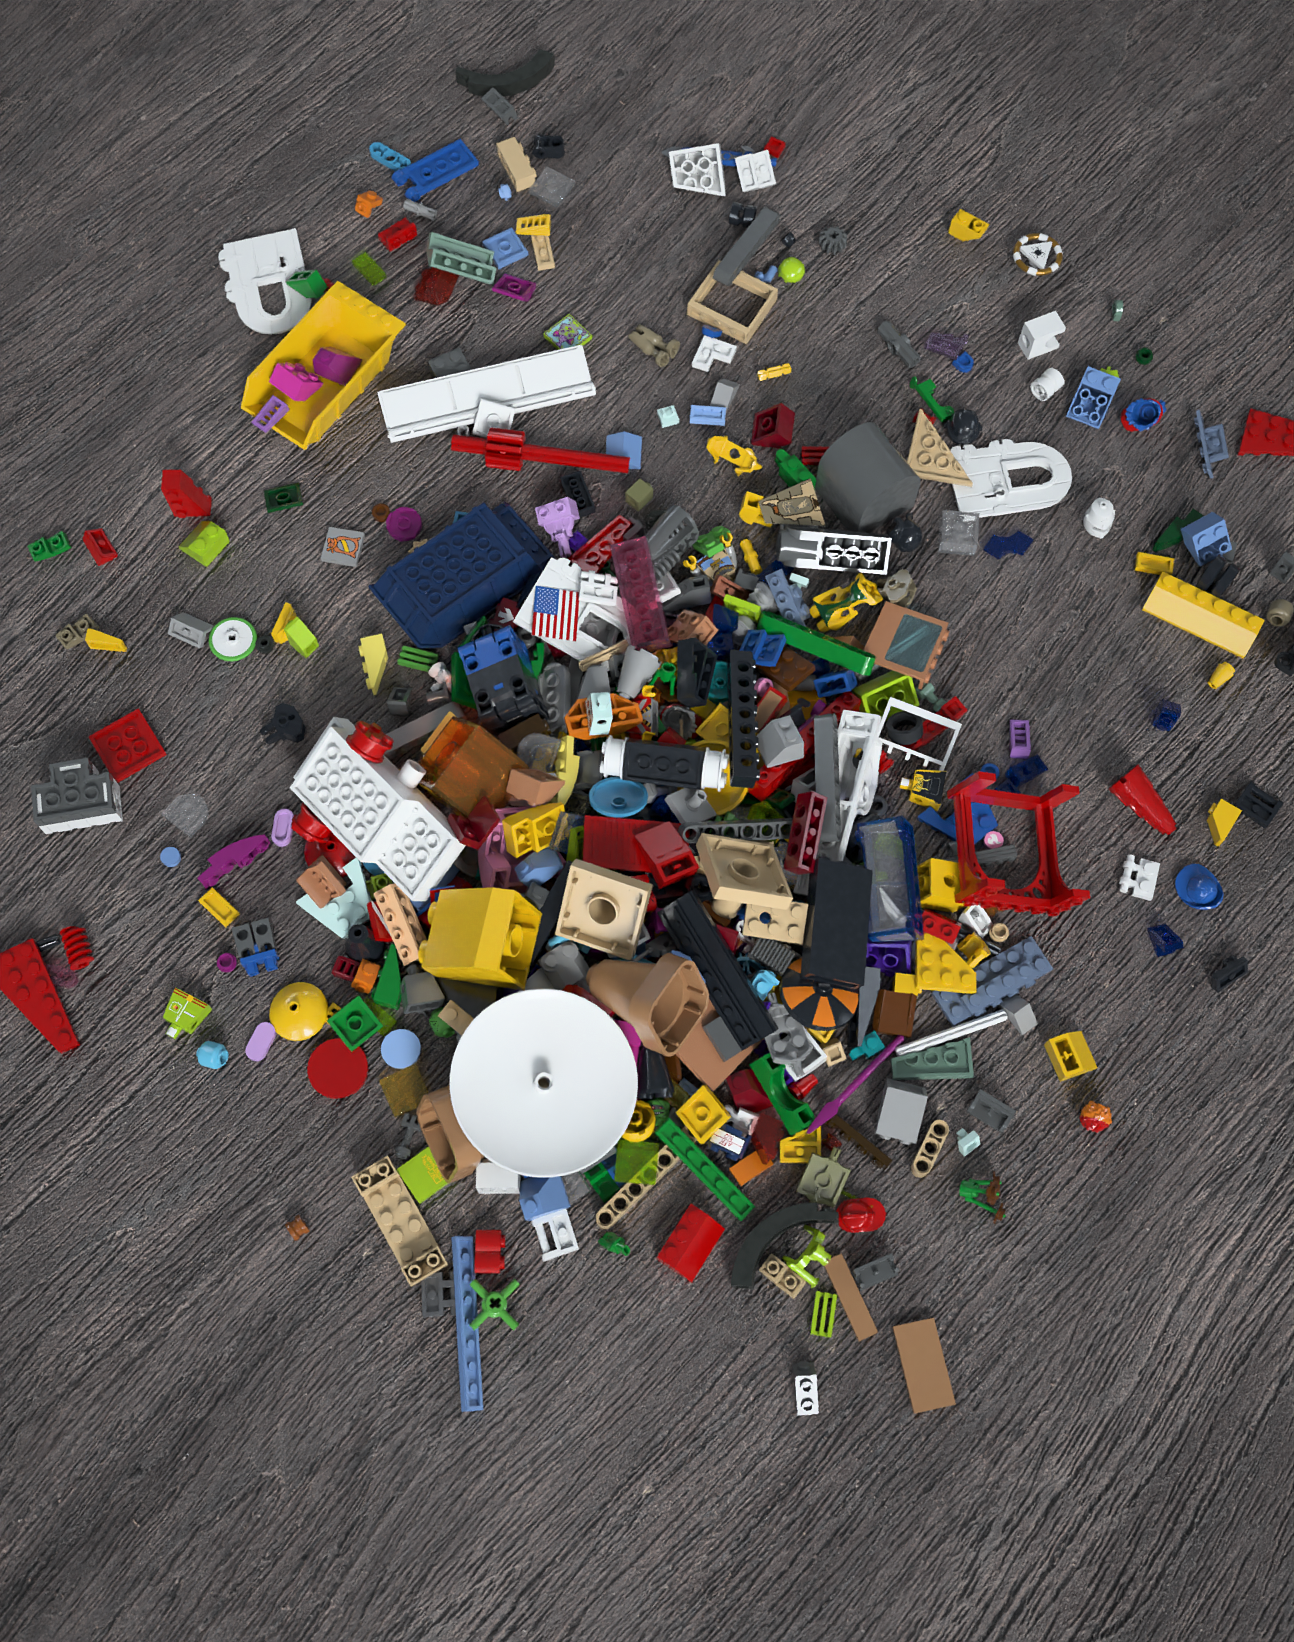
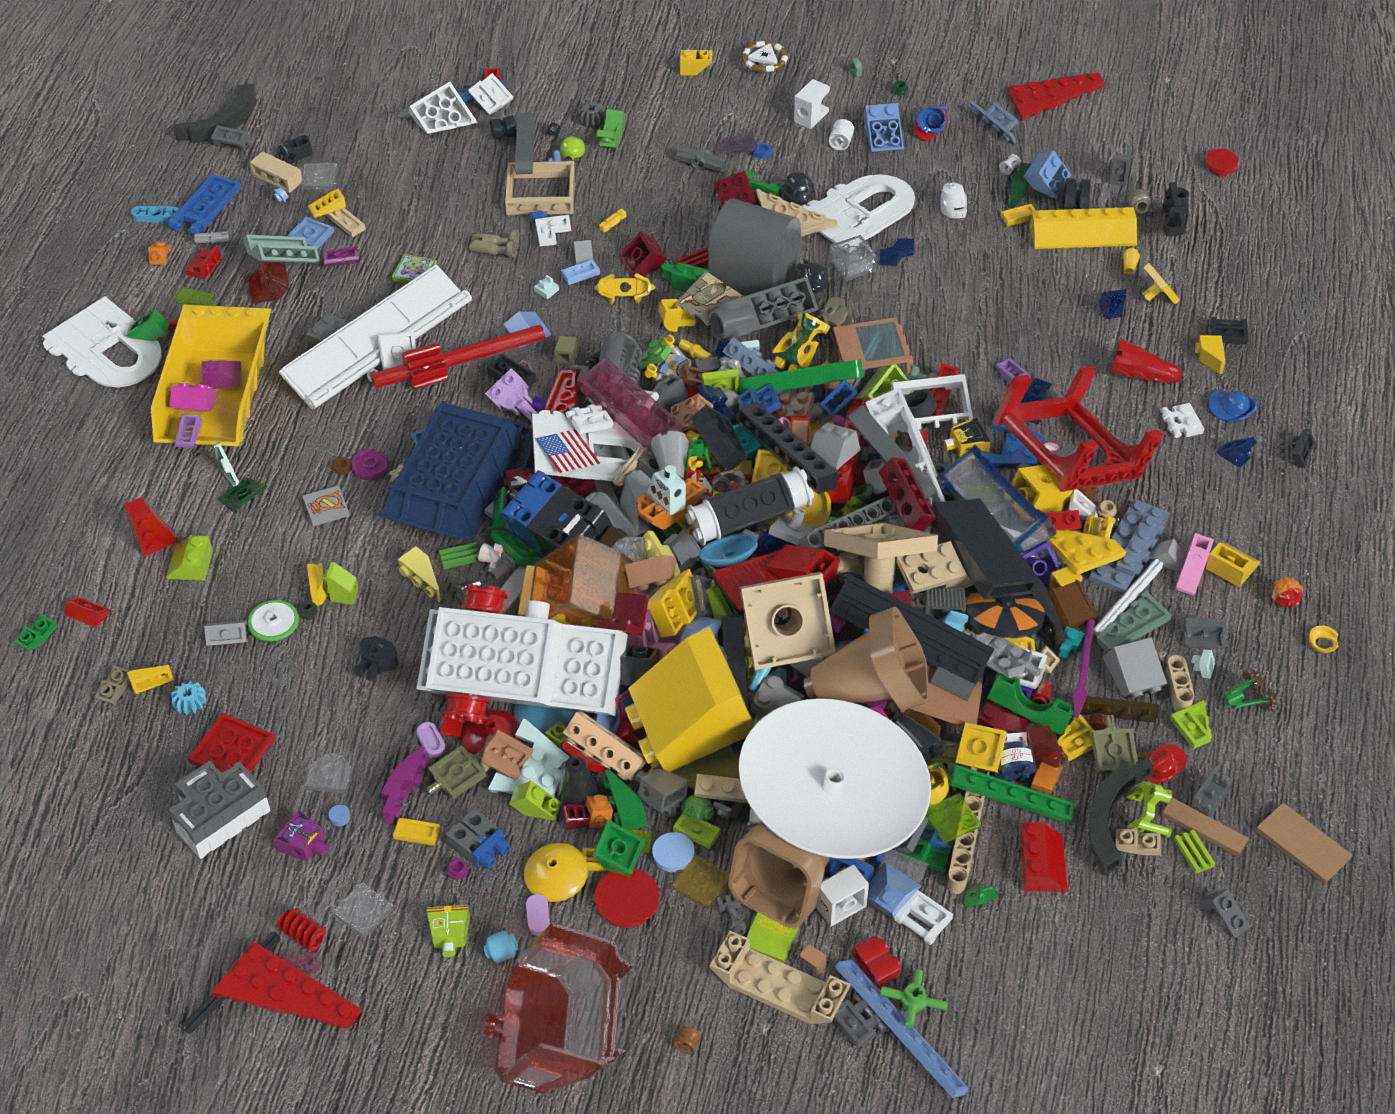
camera: 30 degrees left, 20 degrees down
(128, 862) = (301, 838): none -> magenta torso
(129, 676) = (188, 697): none -> medium azure gear
(135, 955) = (363, 910): none -> clear tile
(203, 1156) = (559, 1010): none -> clear red windscreen
(279, 871) = (456, 772): none -> olive plate
(285, 462) = (224, 464): none -> sand green tile
(322, 938) = (535, 801): none -> lime slope
(431, 1043) = (697, 831): none -> lime plate
(439, 1219) = (815, 958): none -> nougat slope
(467, 870) = (636, 662): none -> black head
(839, 269) = (613, 129): none -> bright green arch
(901, 400) = (735, 187): none -> dark red bracket
(913, 1194) = (1193, 724): none -> lime wing
(1032, 1037) = (1194, 564): none -> bright pink slope
(1100, 1171) = (1323, 632): none -> yellow piece
(1185, 502) = (1009, 162): none -> white bush
(1226, 721) = (1158, 286): none -> yellow tile

